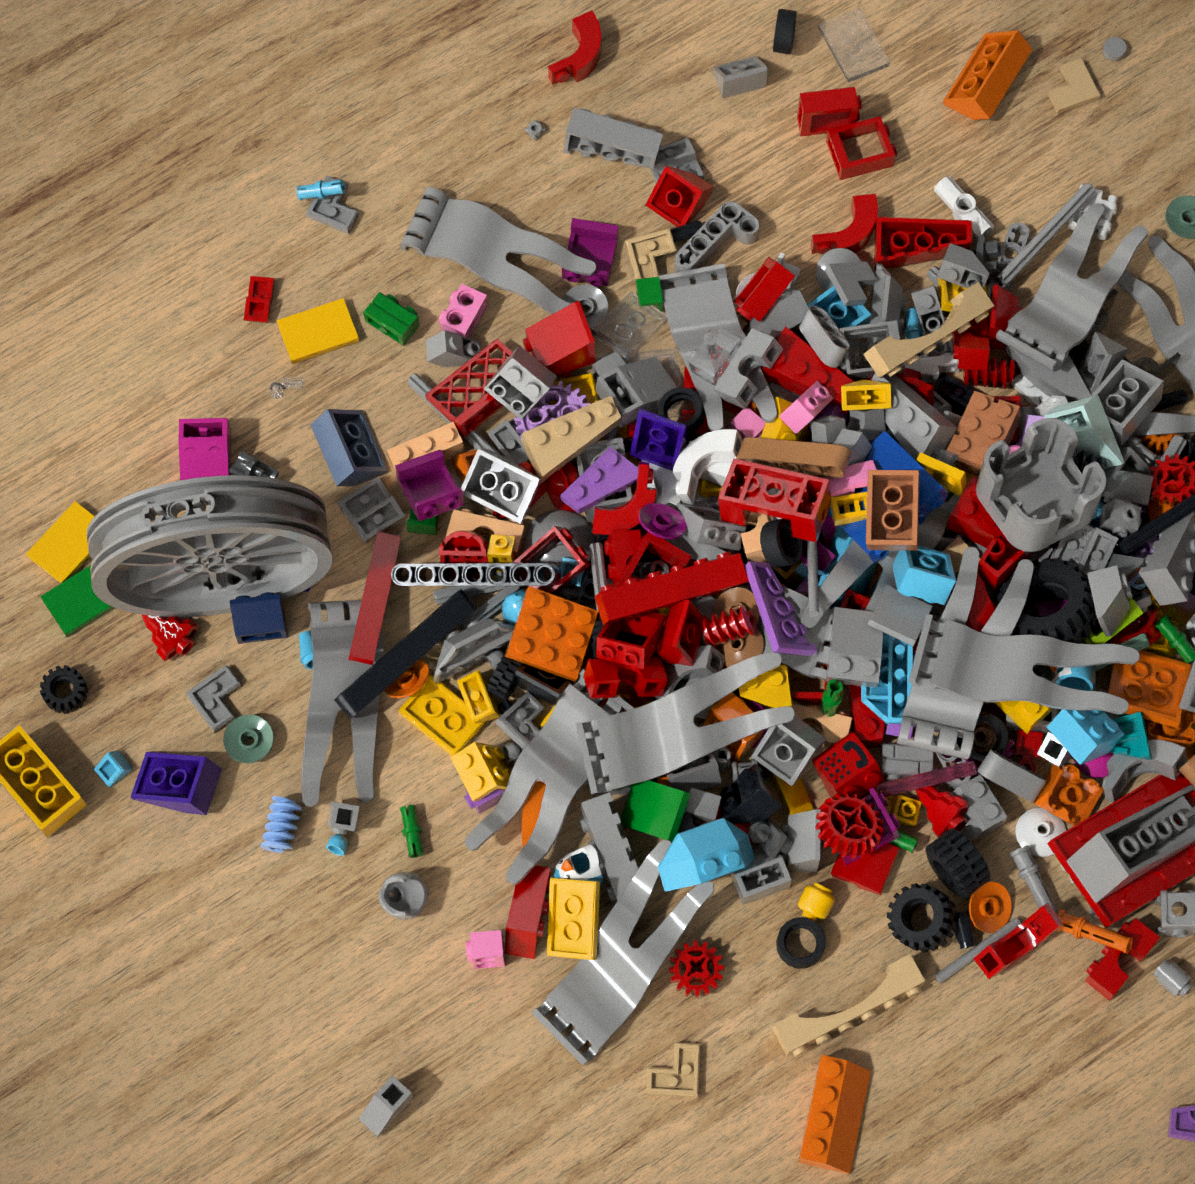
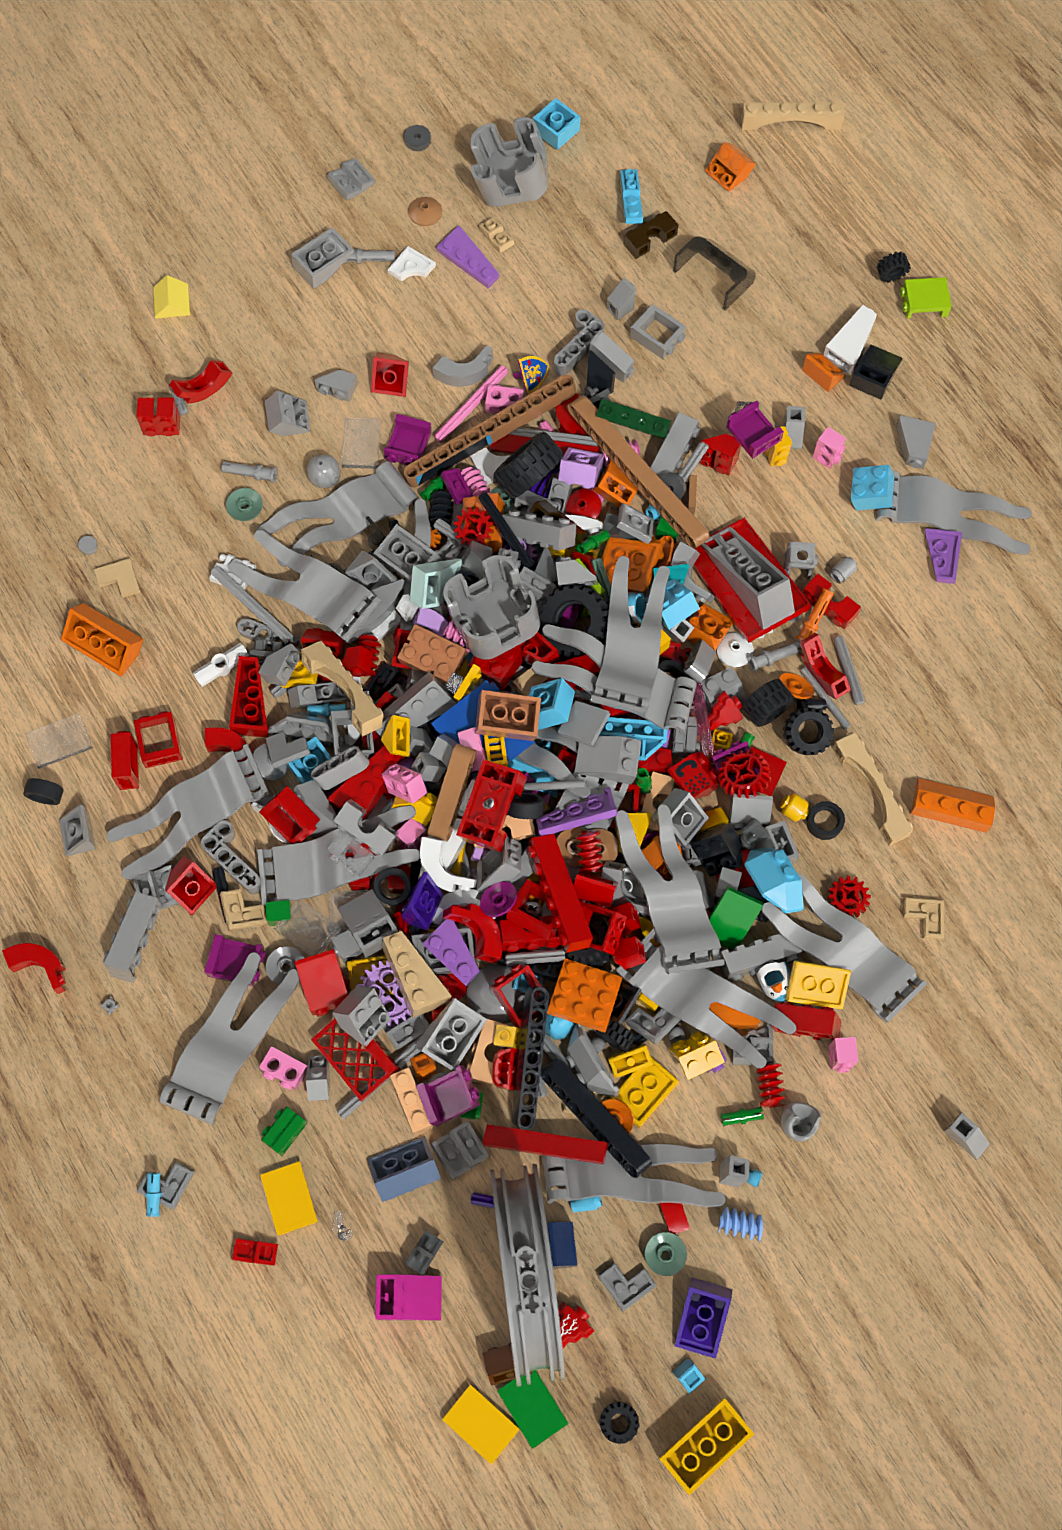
camera: 90 degrees left, 0 degrees up
(289, 751) = (674, 1217): none -> red slope
(448, 863) = (770, 1085): none -> red piece
(498, 851) = (762, 1041): none -> light grey slope
(780, 198) = (202, 804): none -> light grey flag
(1021, 982) = (849, 670): none -> light grey axle

